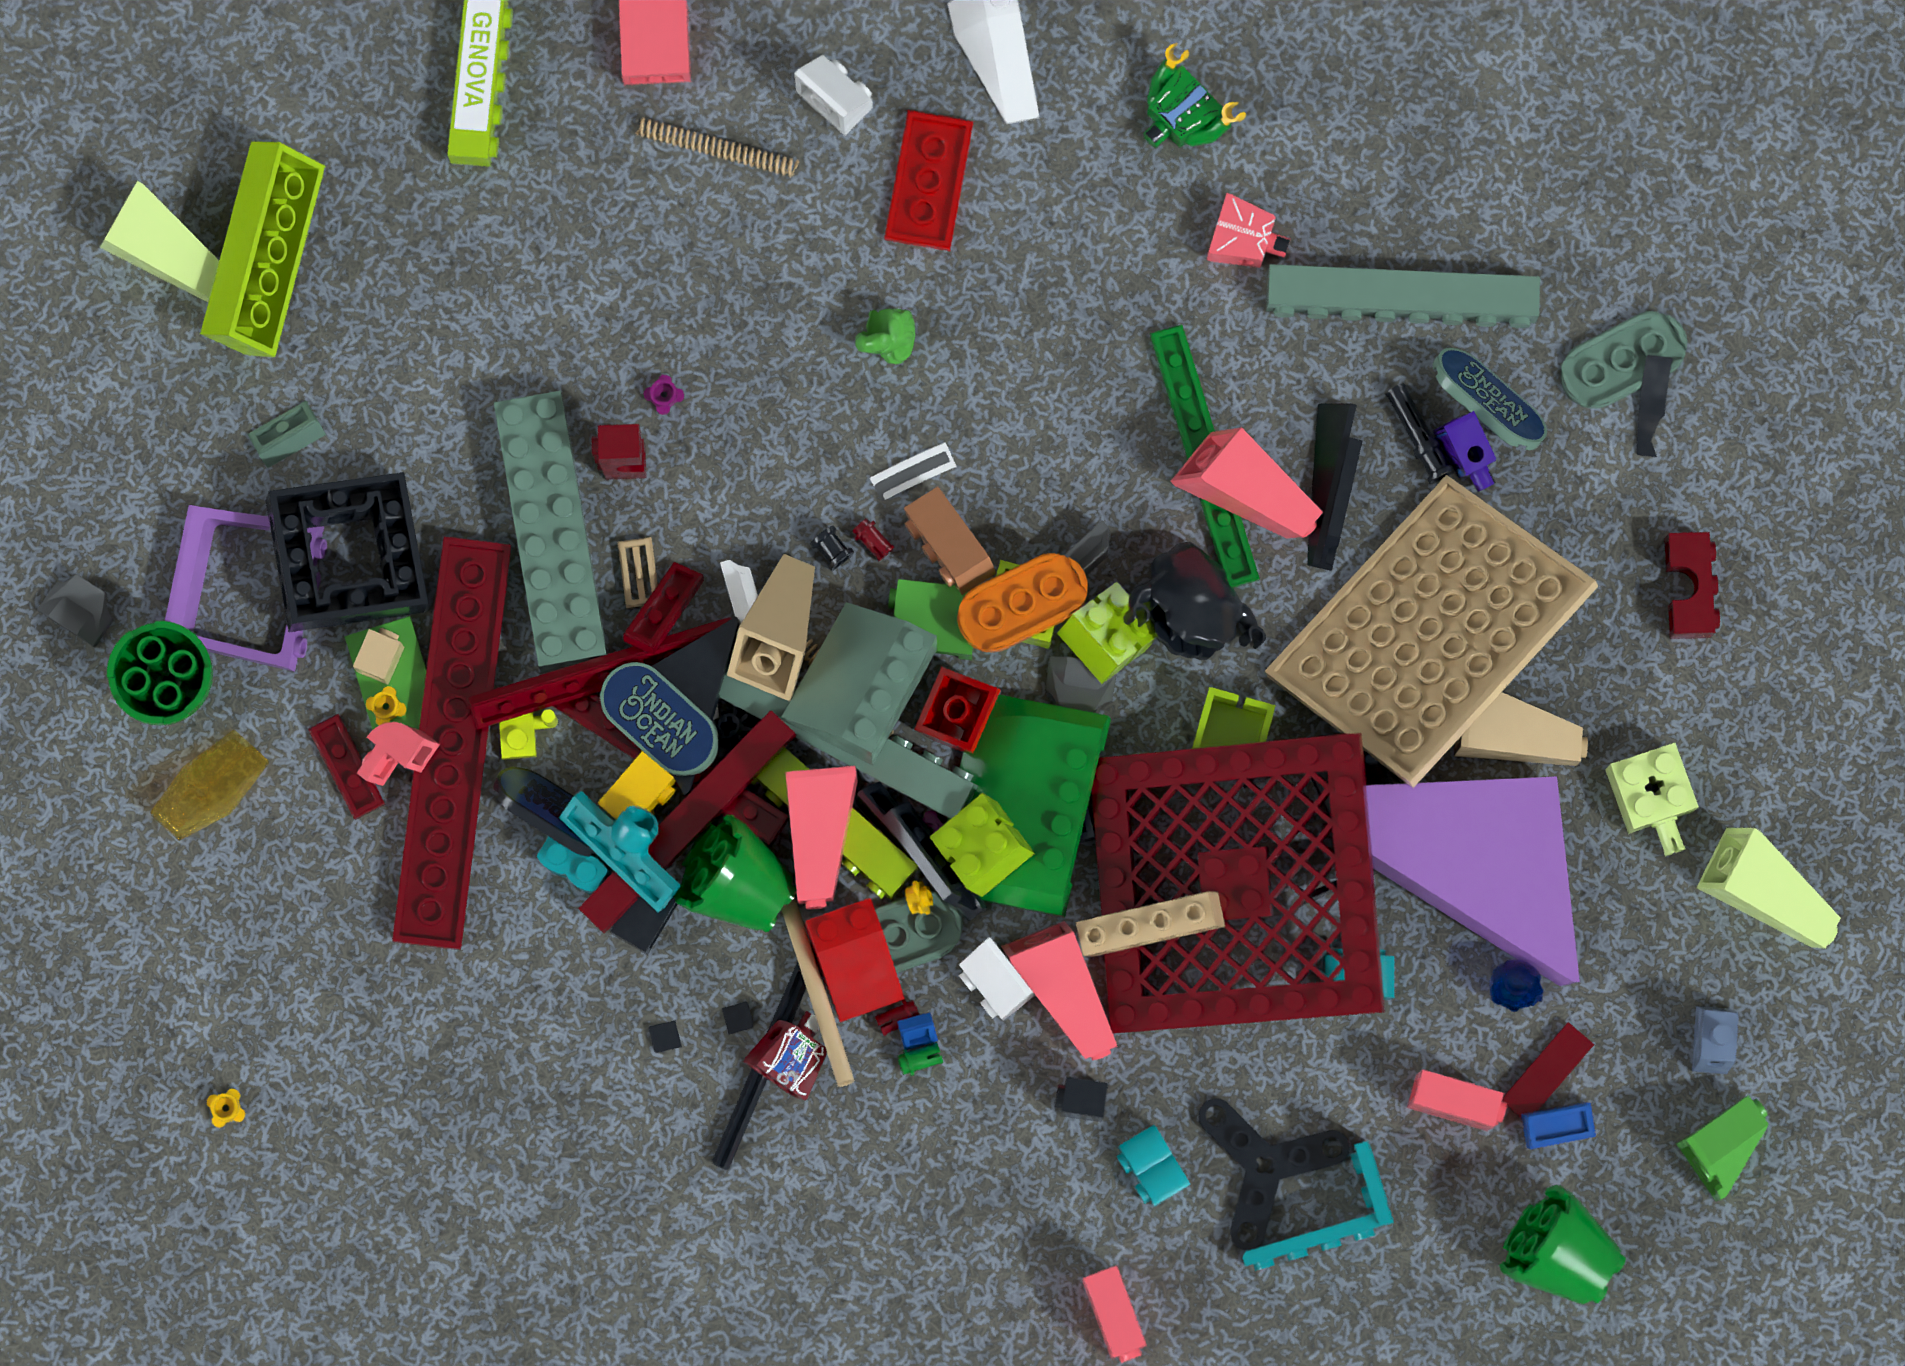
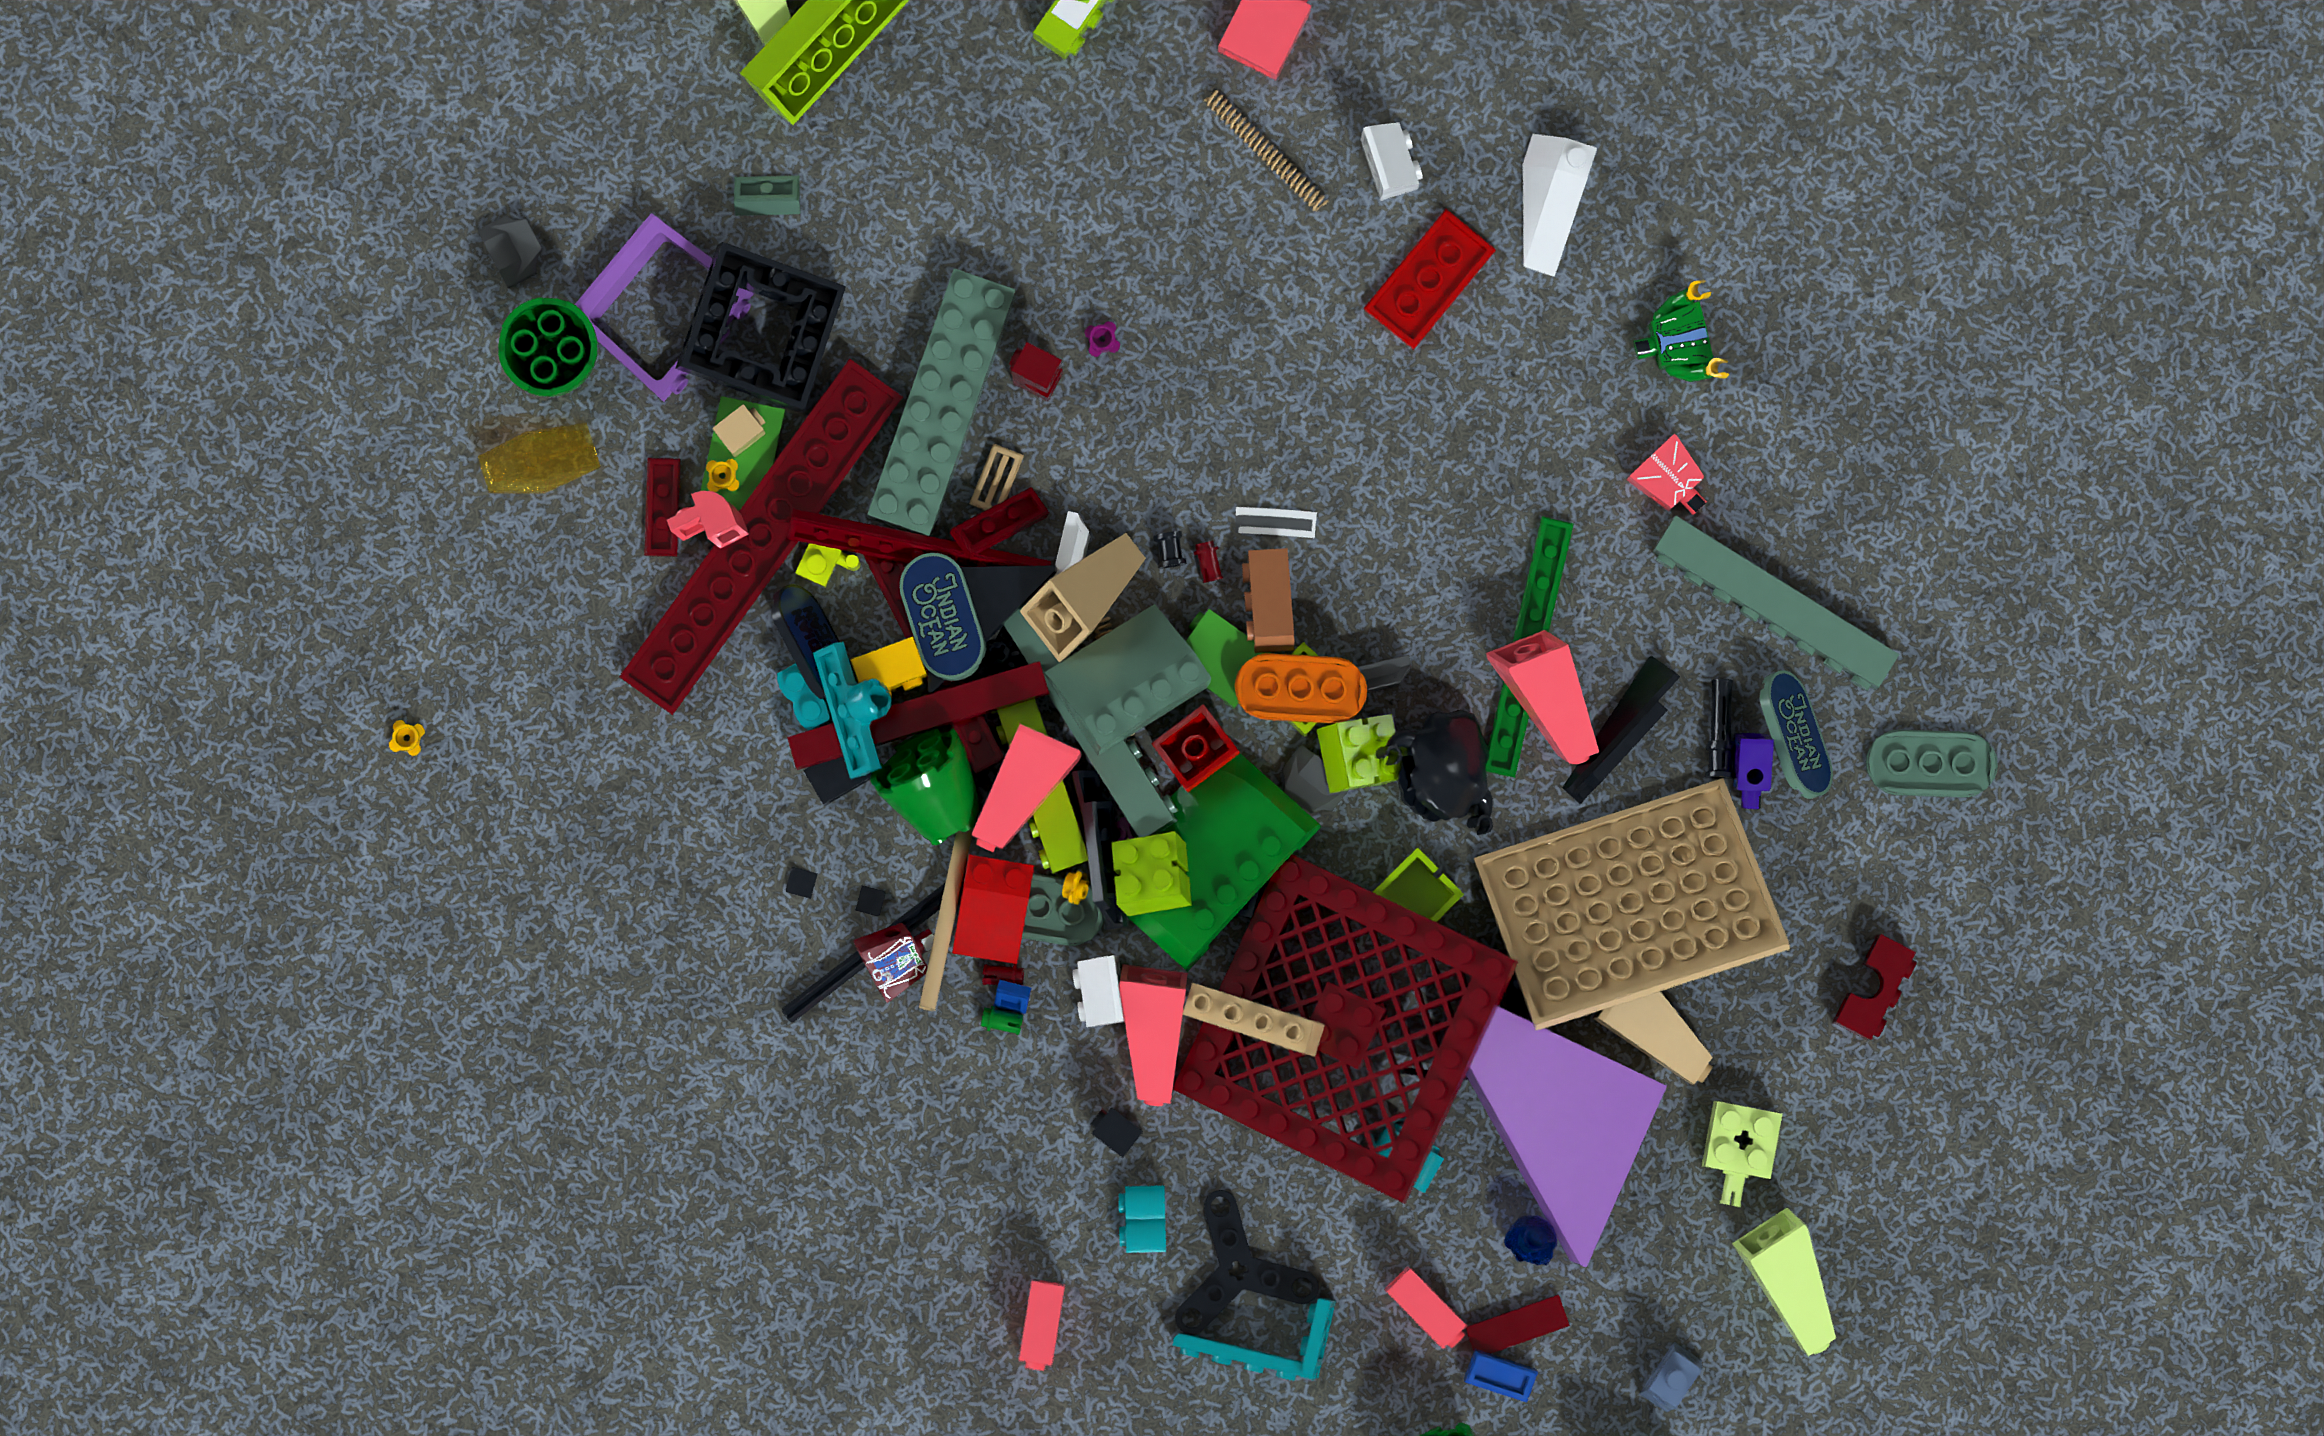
camera: 25 degrees right, 5 degrees up
(888, 334) = (1319, 394): bright green hair -> none
(1652, 401) = (1934, 813): black sticker -> none

